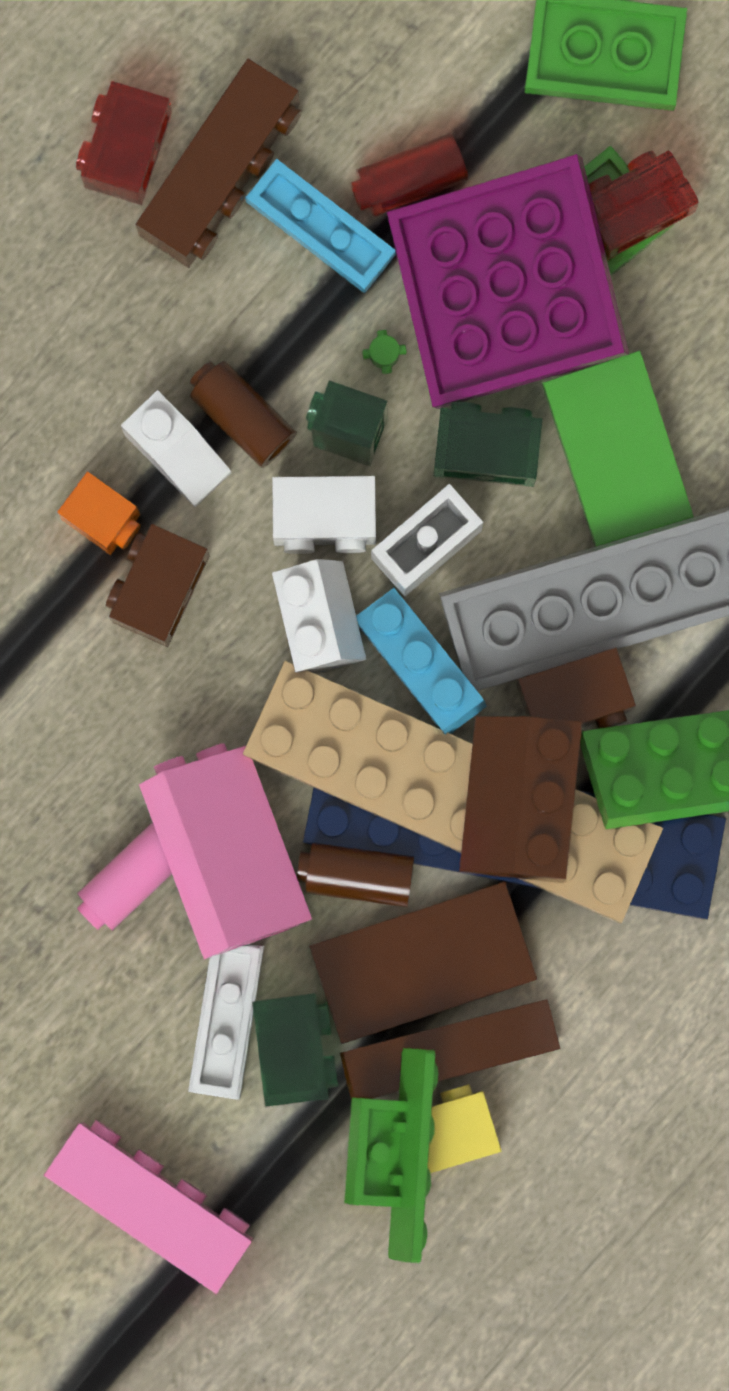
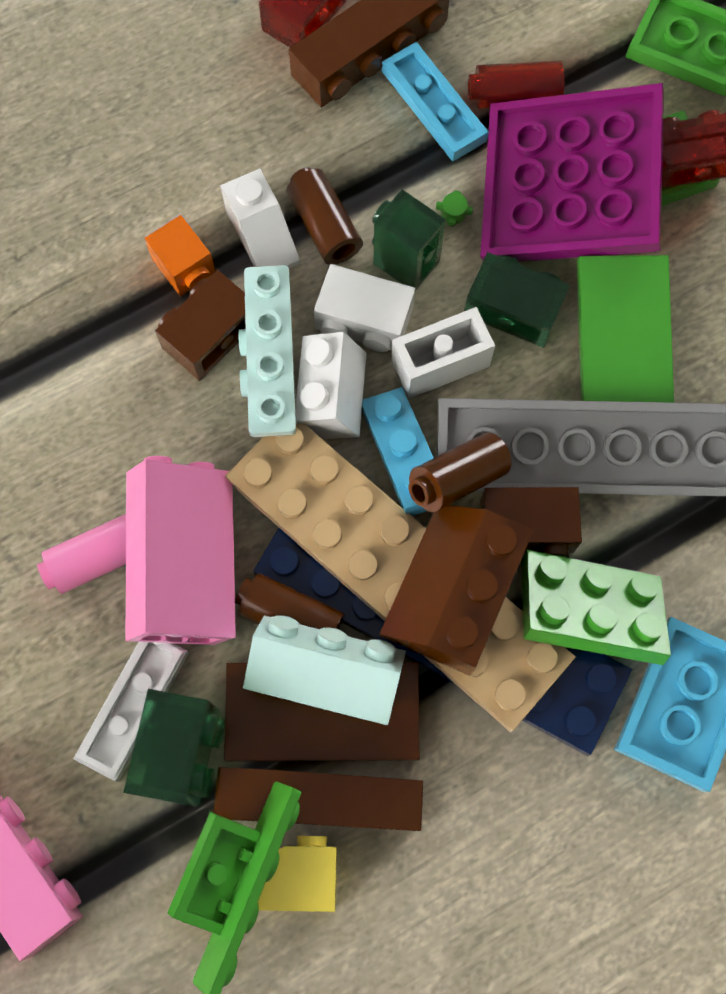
camera: 15 degrees right, 10 degrees down
(242, 601) = (268, 352): none -> light aqua bracket
(415, 922) = (324, 668): none -> light aqua brick
(488, 677) = (459, 472): none -> reddish brown brick

